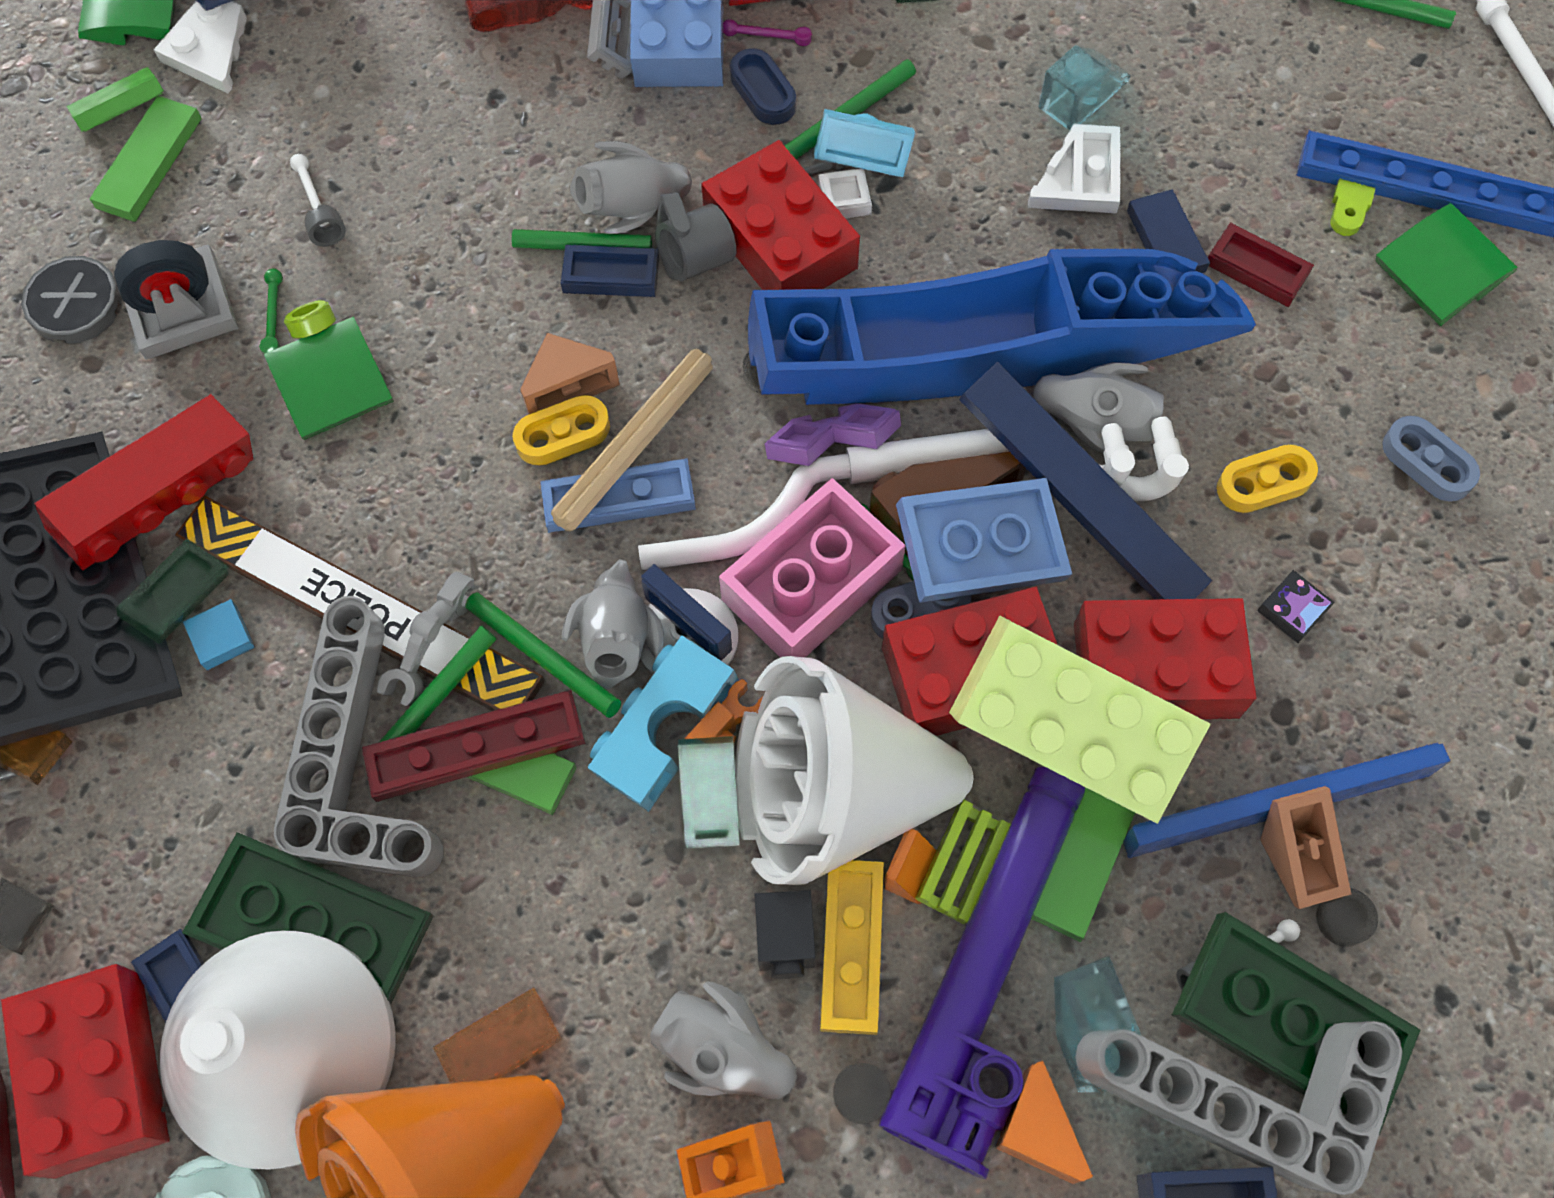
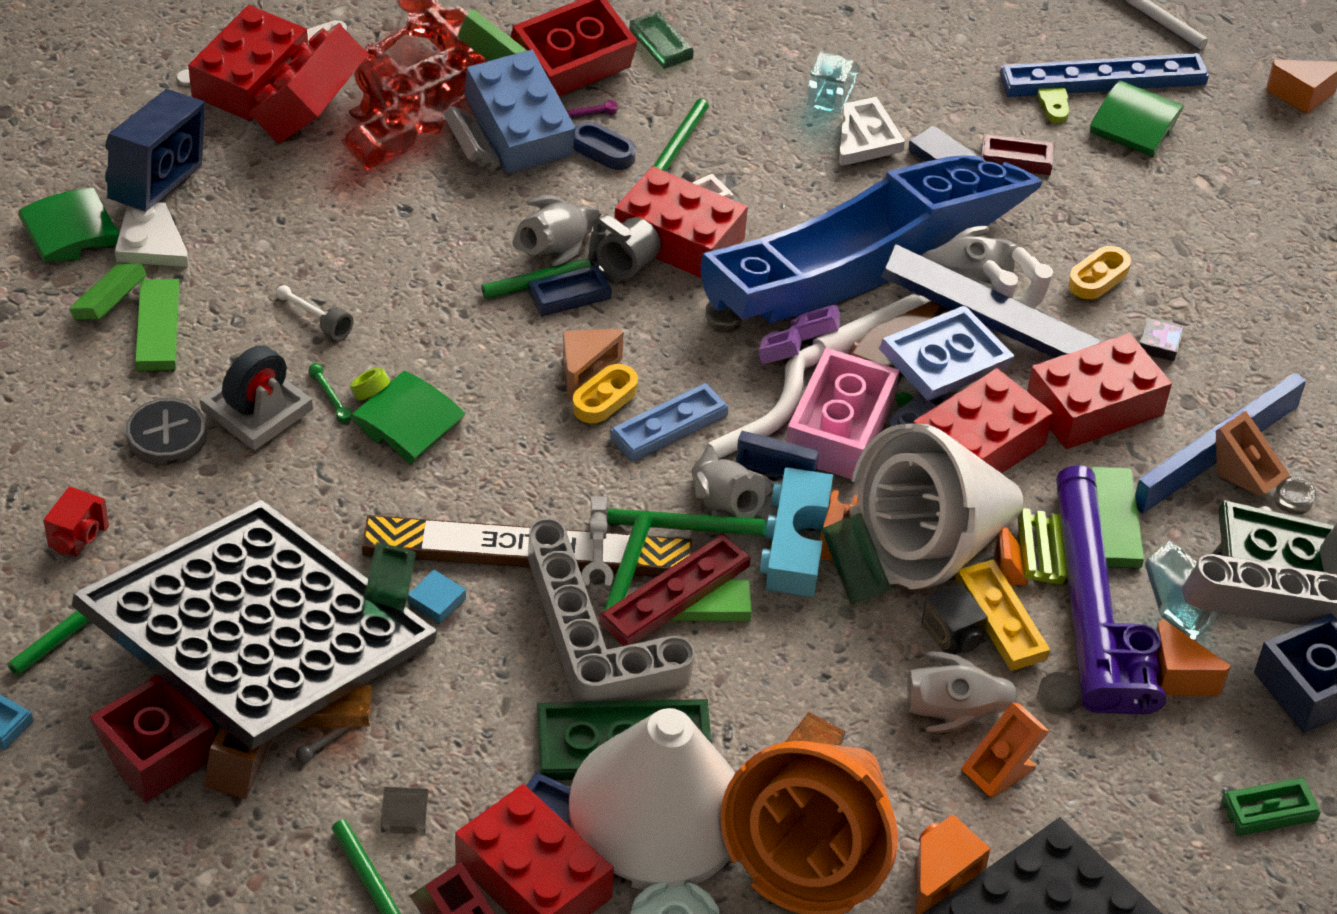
camera: 30 degrees left, 20 degrees down
(145, 482) = (329, 511): red brick -> none
(631, 440) = (662, 380): tan axle -> none
(864, 142) = (707, 155): medium azure tile -> none
(1078, 719) = (1072, 420): yellowish green brick -> none
(1431, 457) = (1194, 229): sand blue plate -> none

